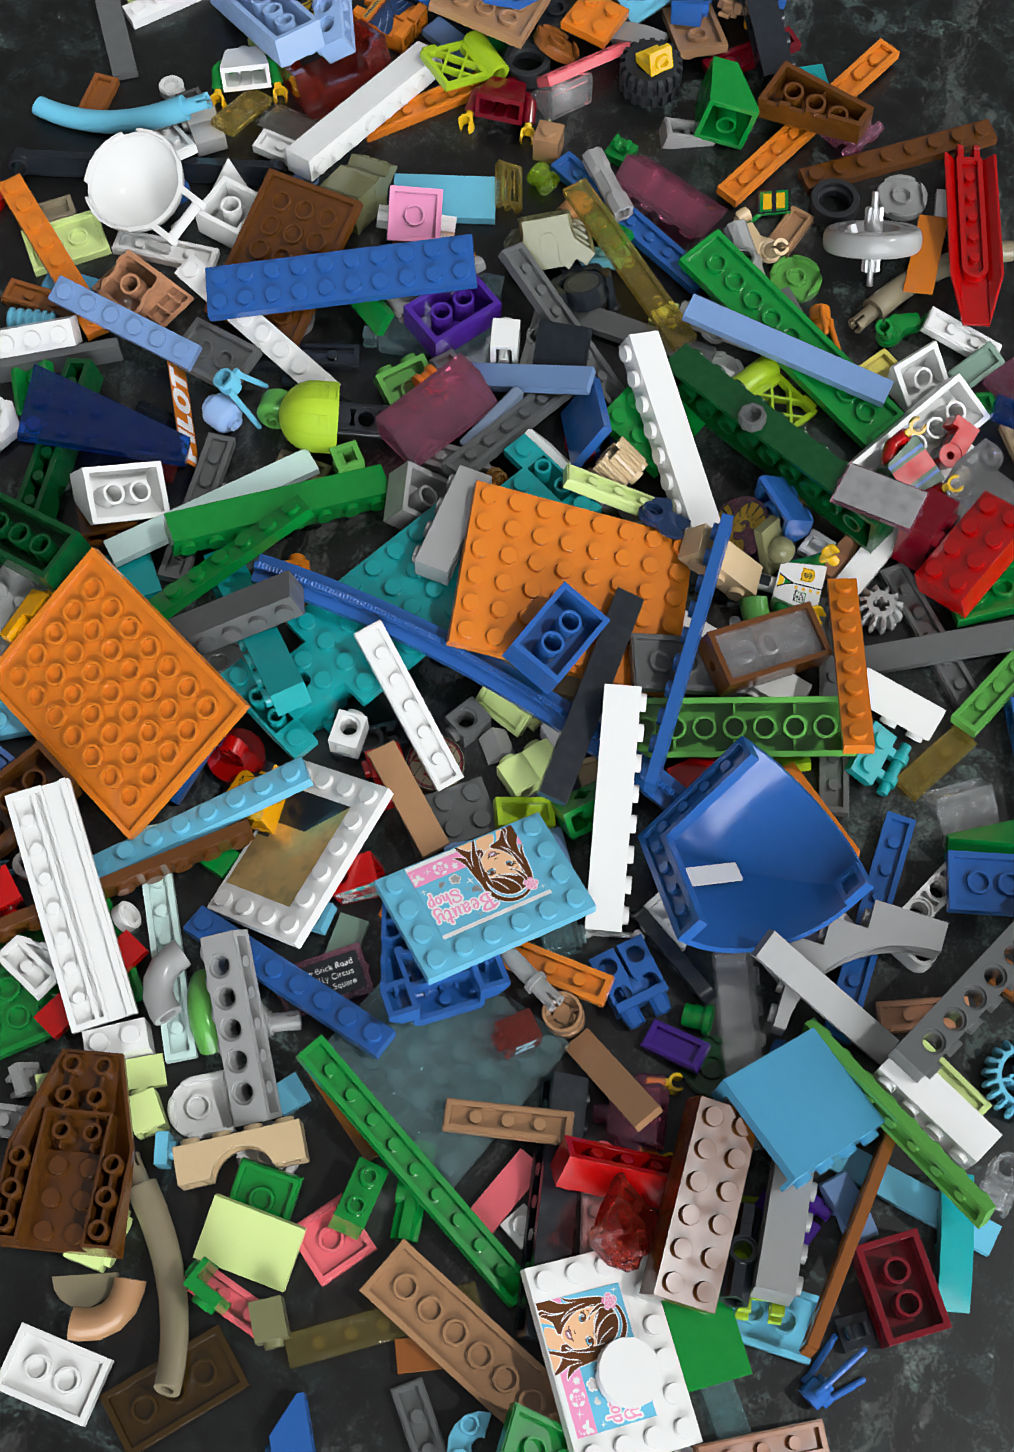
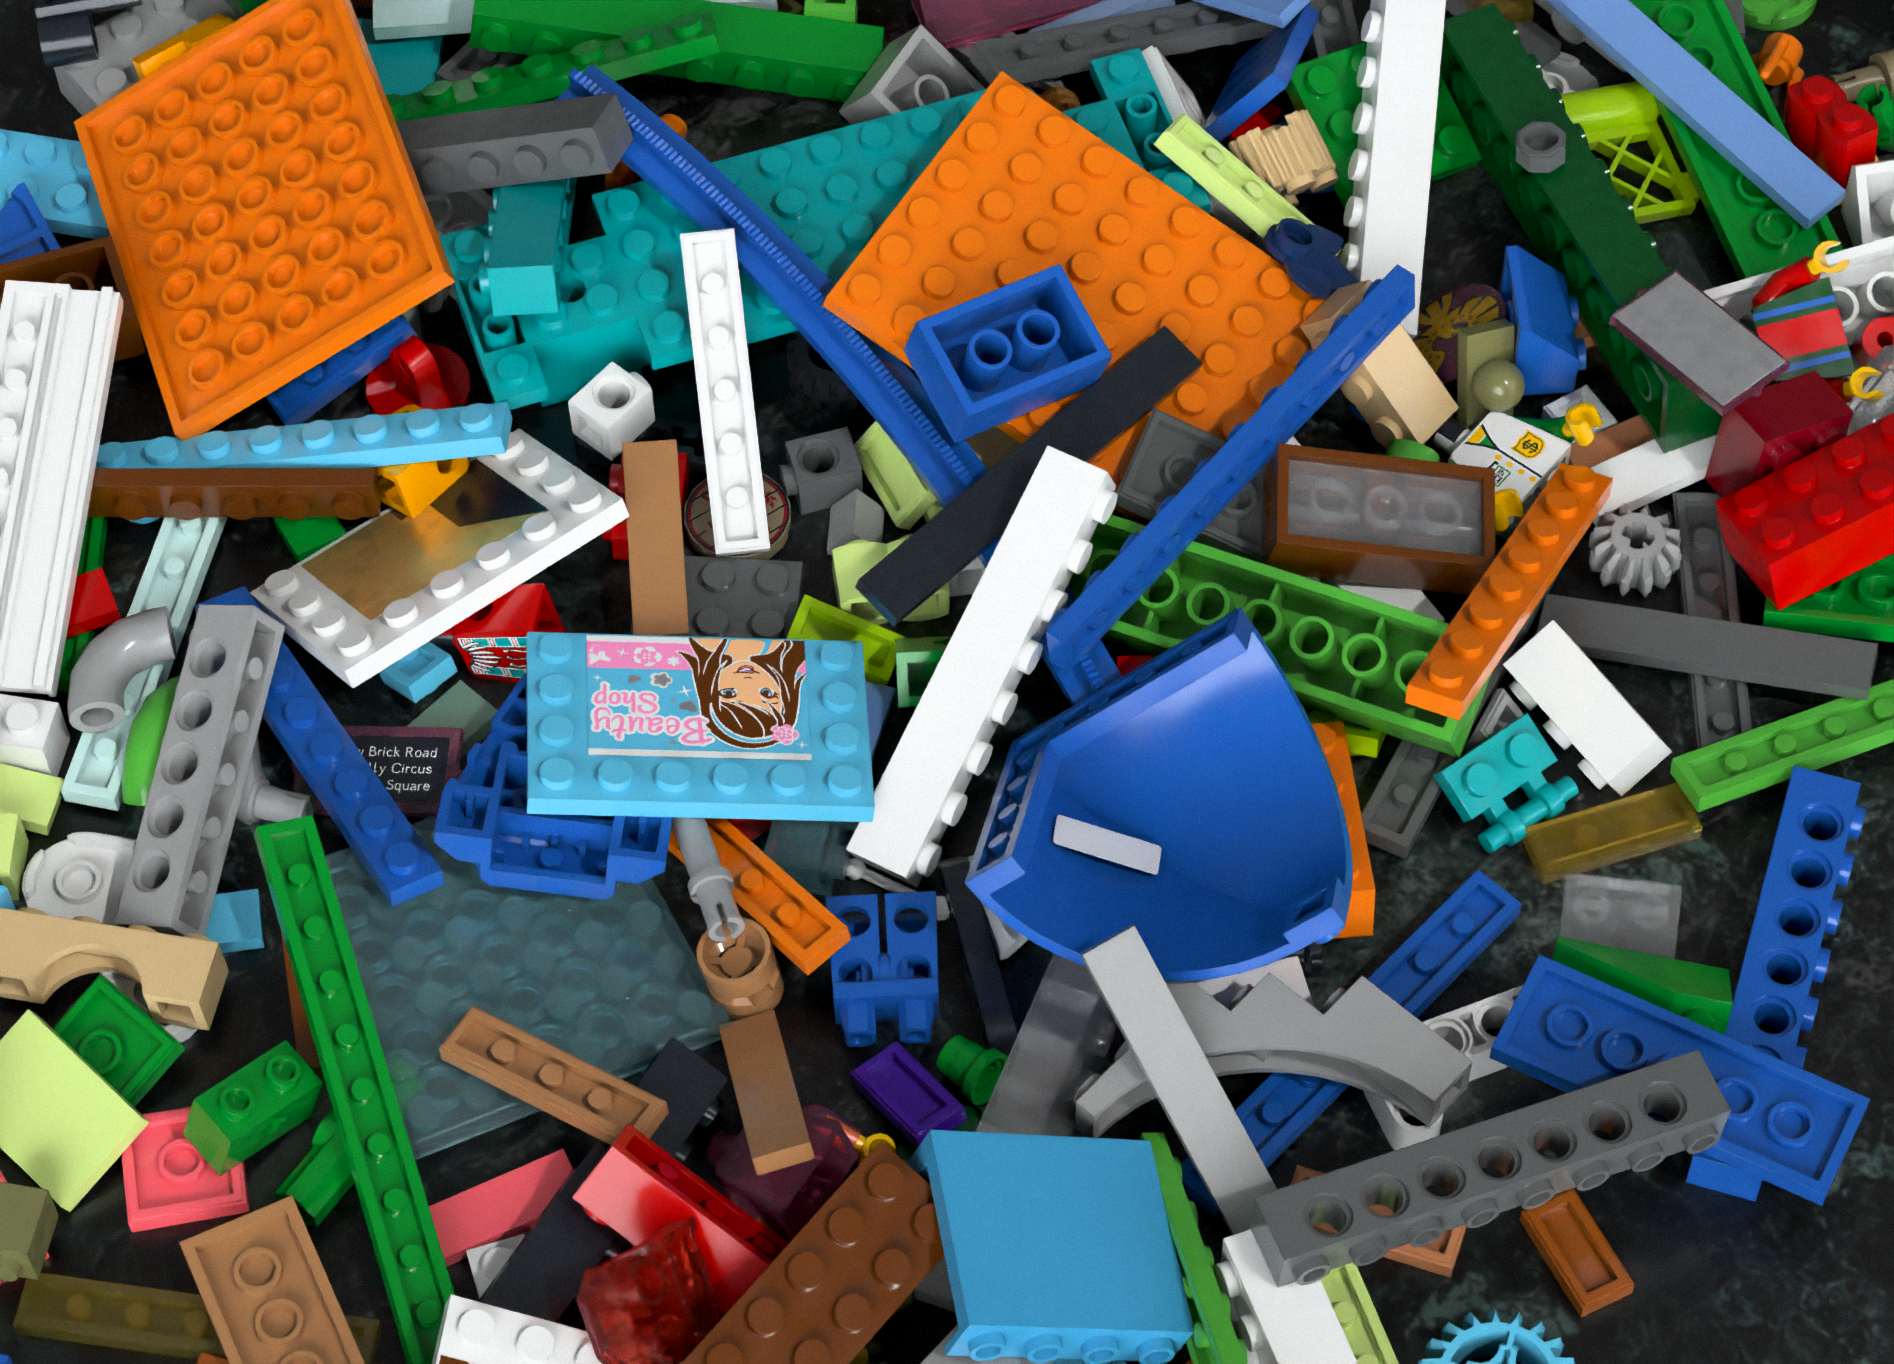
camera: 25 degrees right, 10 degrees down
(126, 916) = (116, 554): white tile -> none
(446, 533) = (889, 162): light grey brick -> none
(516, 1034) = (641, 959): clear red brick -> none
(869, 349) = (1829, 127): none -> red brick

